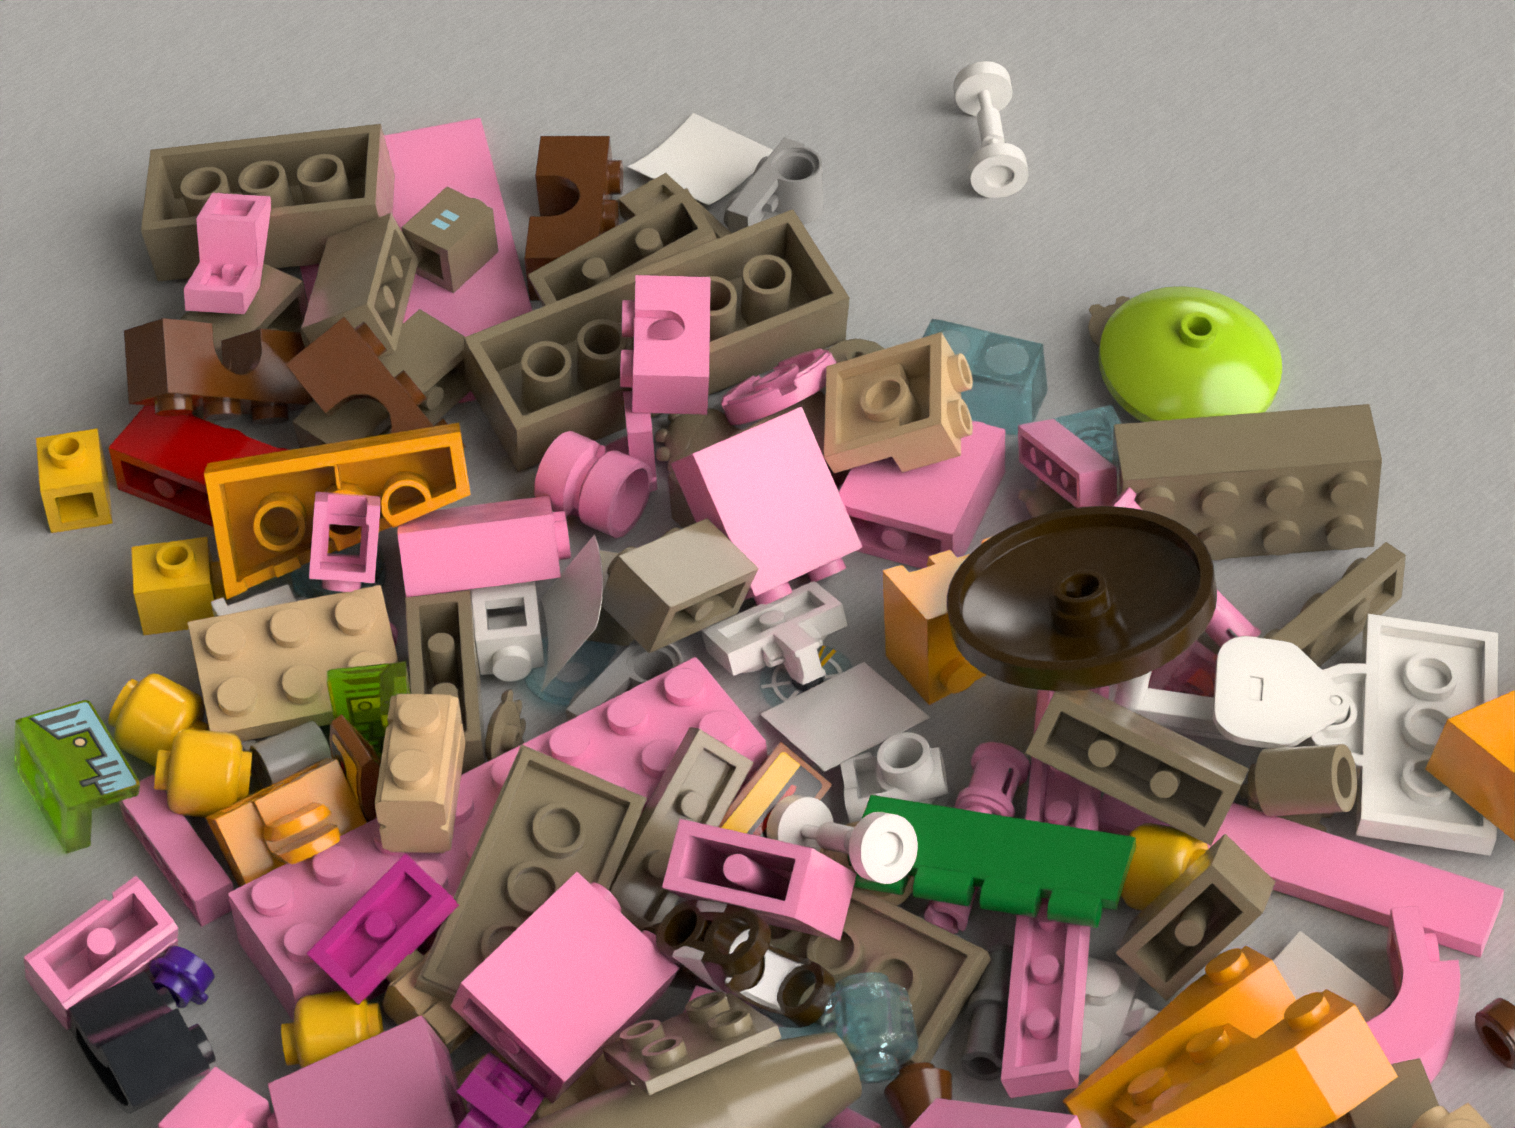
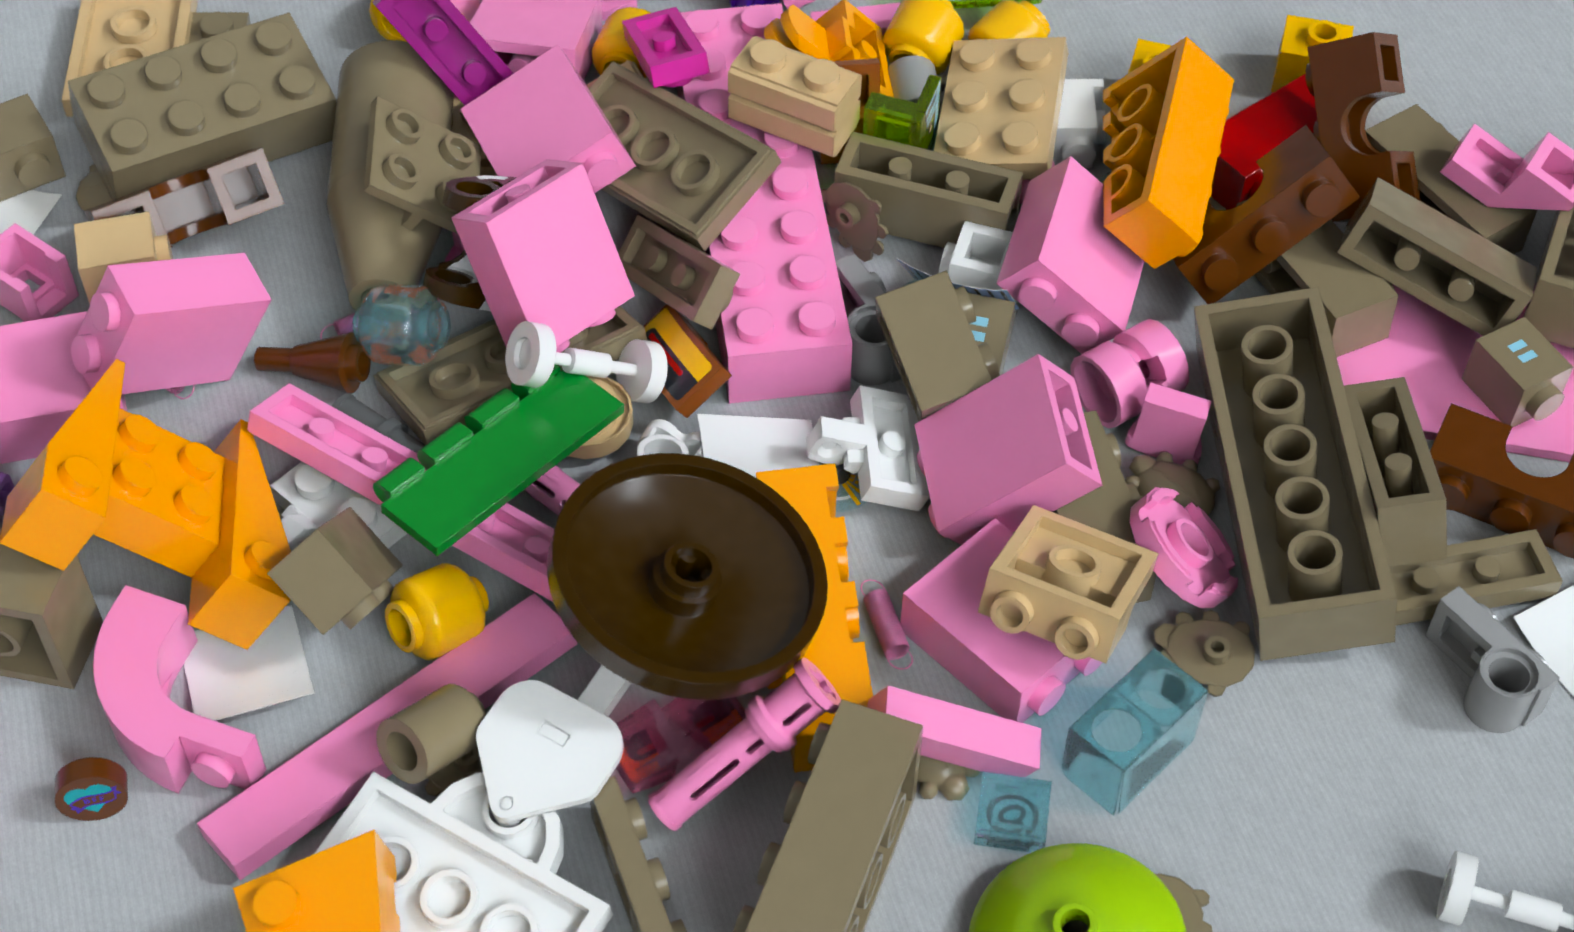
camera: 110 degrees right, 5 degrees up
(344, 571) = (1093, 127): bright pink window -> none
(669, 344) = (1193, 421): bright pink brick -> none
(1138, 762) = (495, 597): dark tan brick -> none

